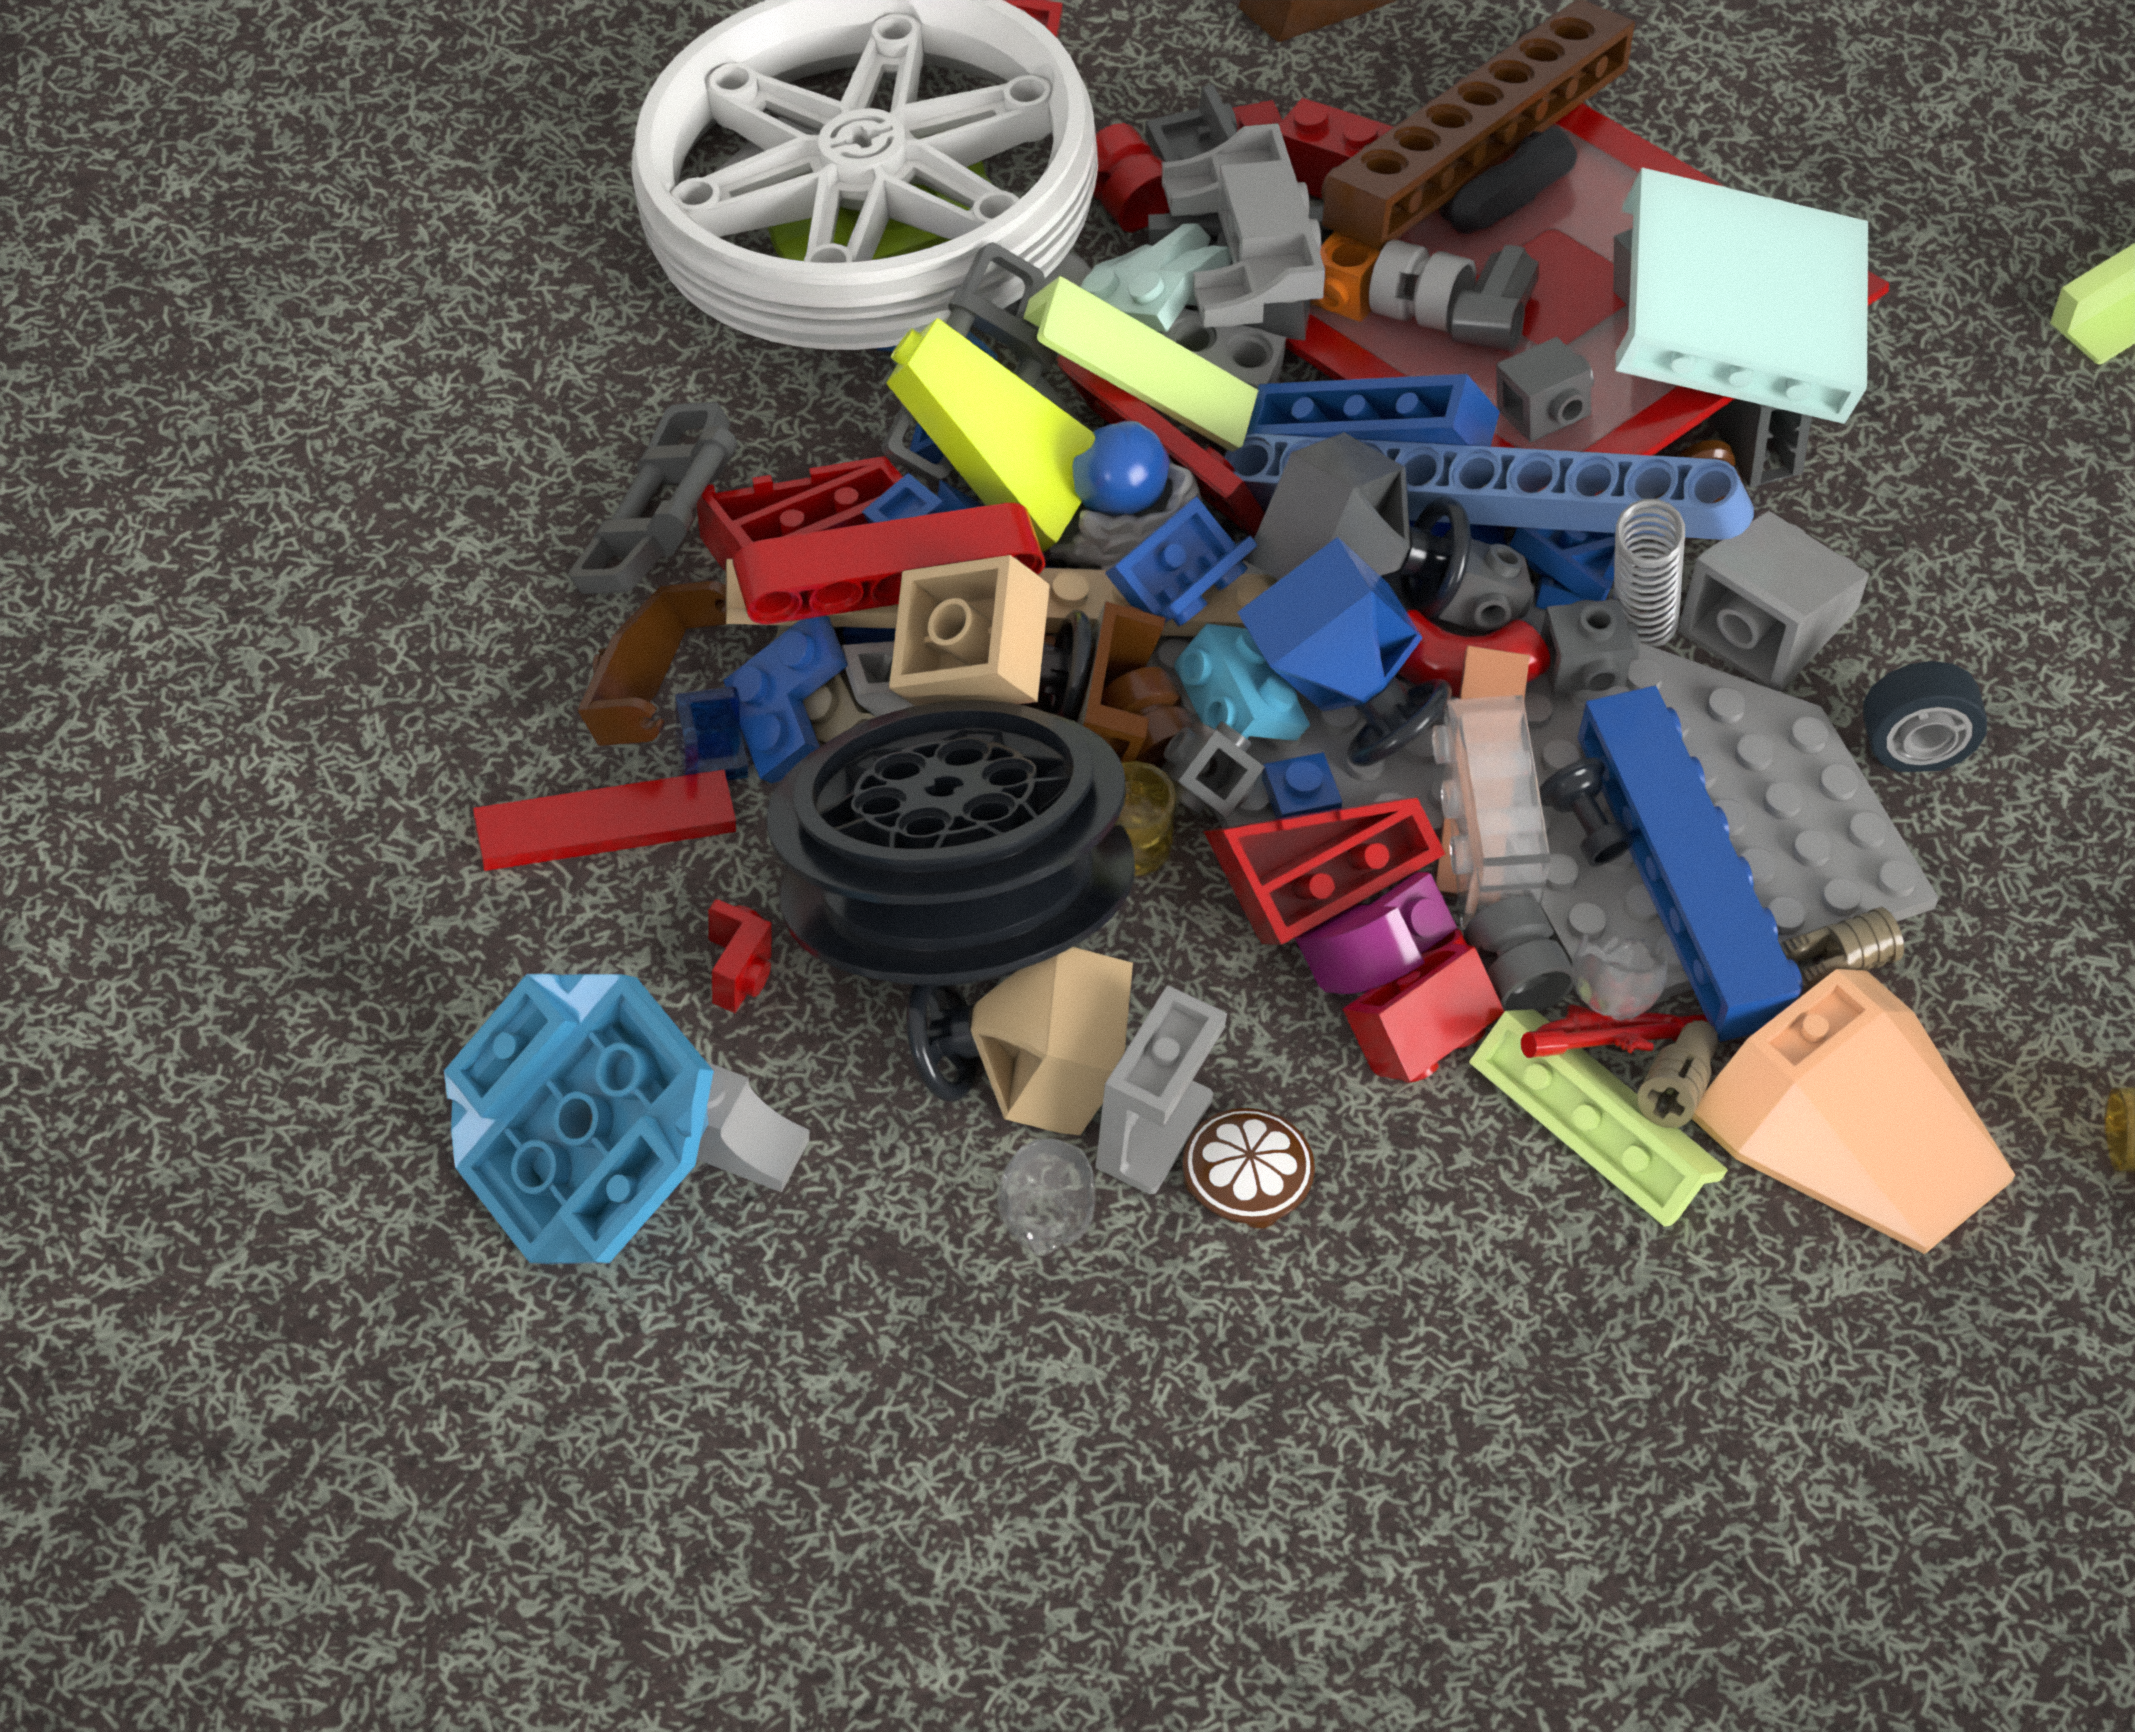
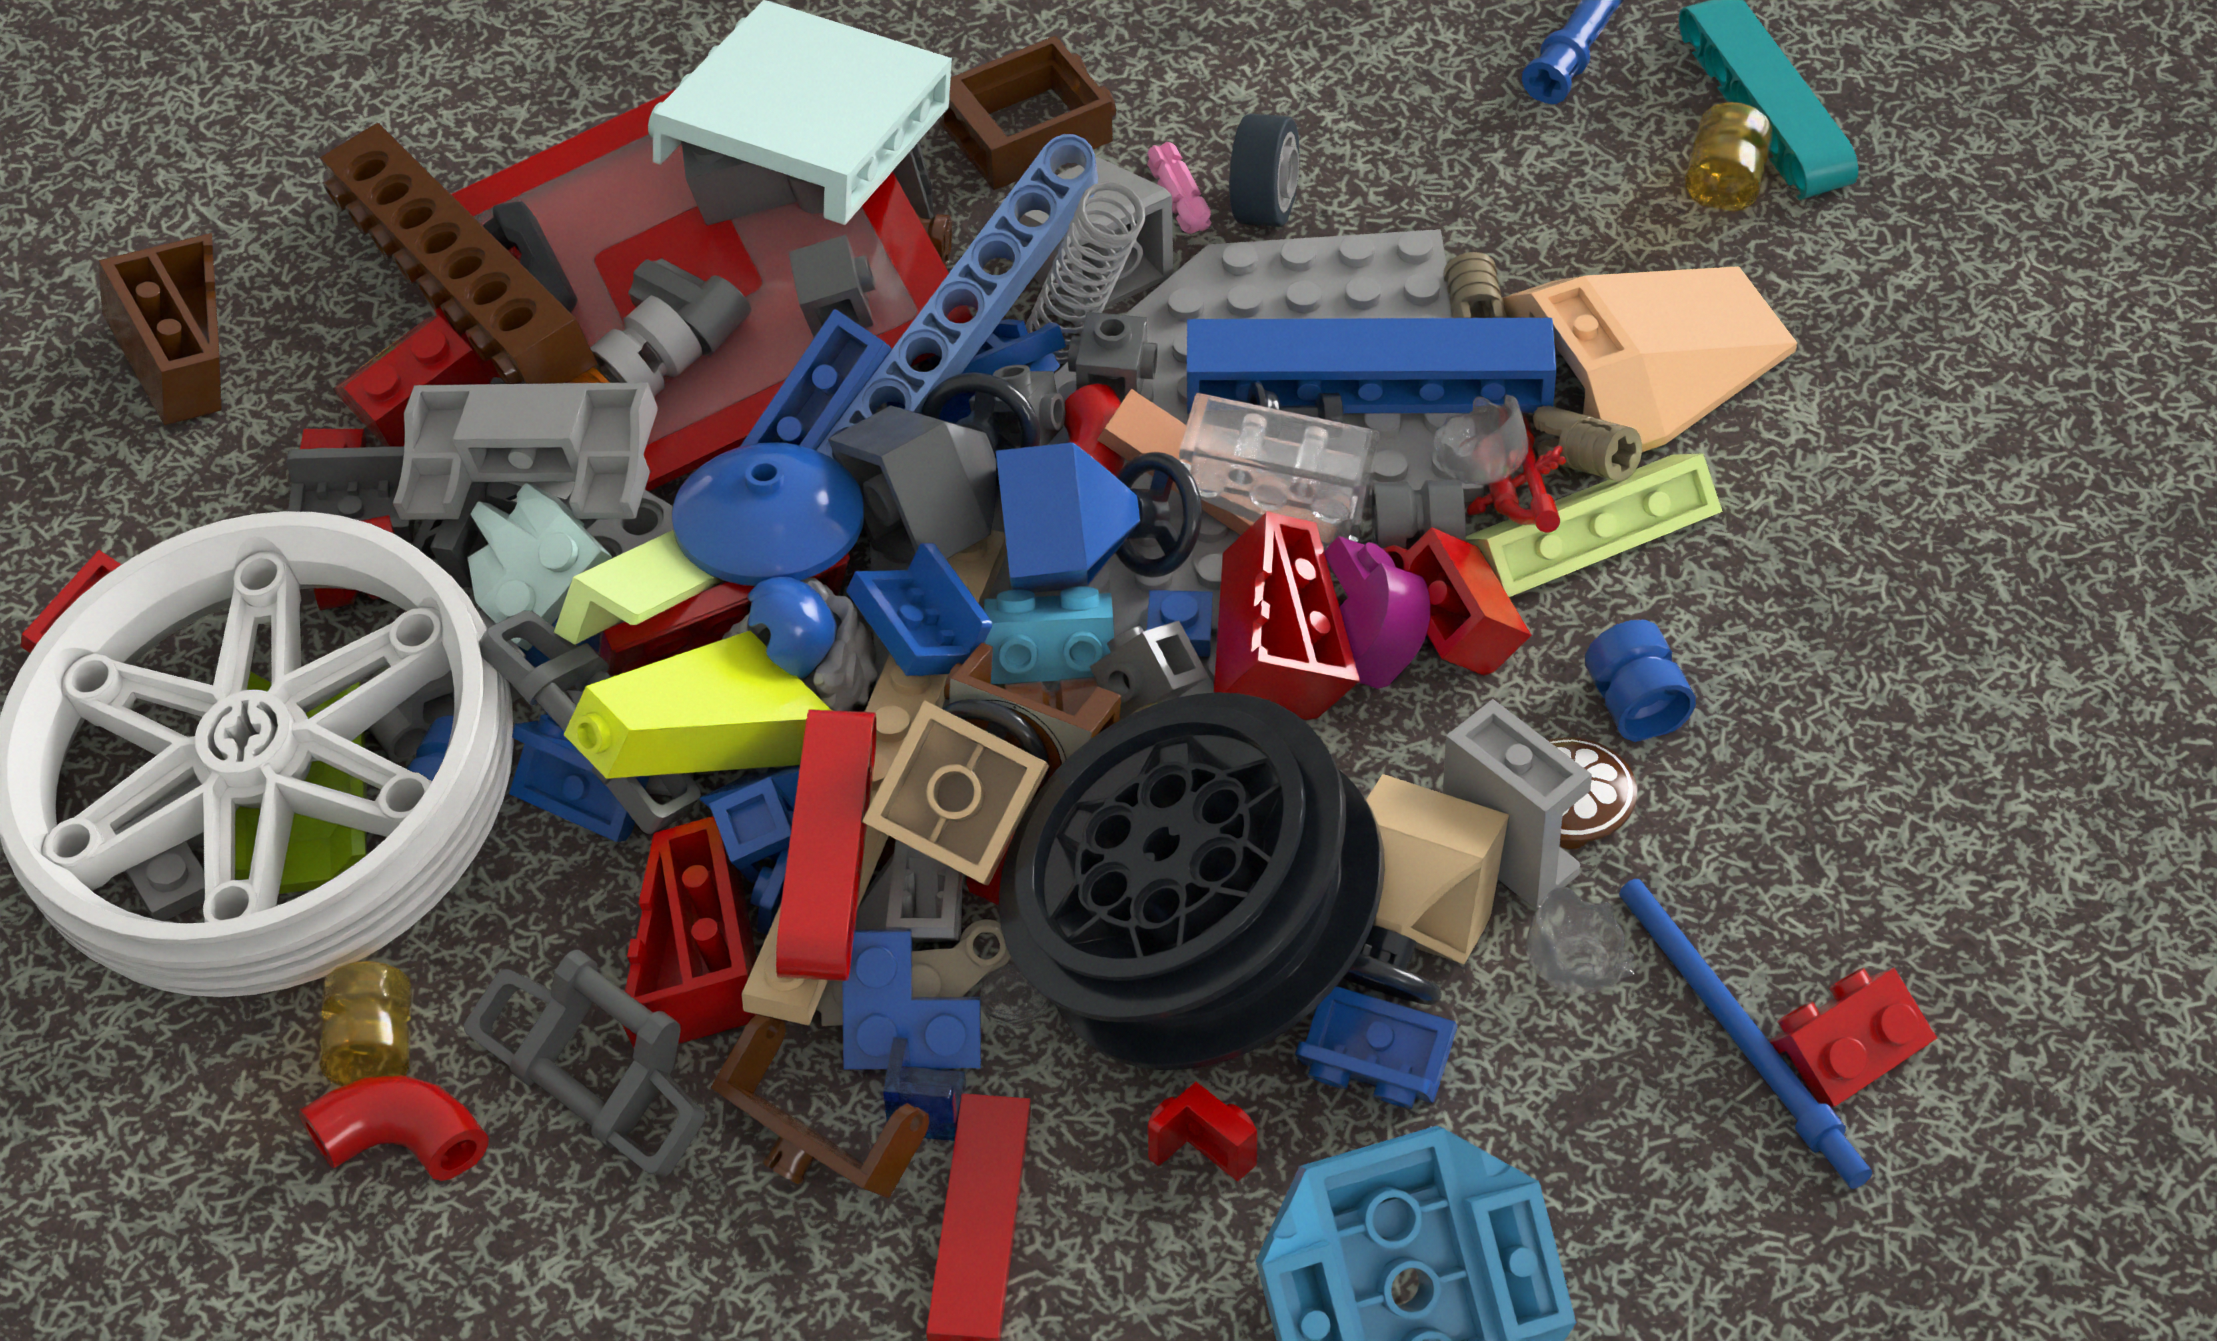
camera: 65 degrees left, 5 degrees down
(568, 385) = (400, 1113): none -> red cylinder
(634, 341) = (365, 1022): none -> clear yellow wheel
(870, 1068) = (1377, 1045): none -> blue bracket
(922, 1445) = (1815, 1122): none -> blue bar
(1030, 1455) = (1853, 1036): none -> red bracket
(1239, 415) = (768, 513): none -> blue dish
(1398, 1184) = (1639, 680): none -> blue wheel
(1921, 647) = (1176, 178): none -> bright pink axle
(1943, 476) = (1012, 80): none -> reddish brown window

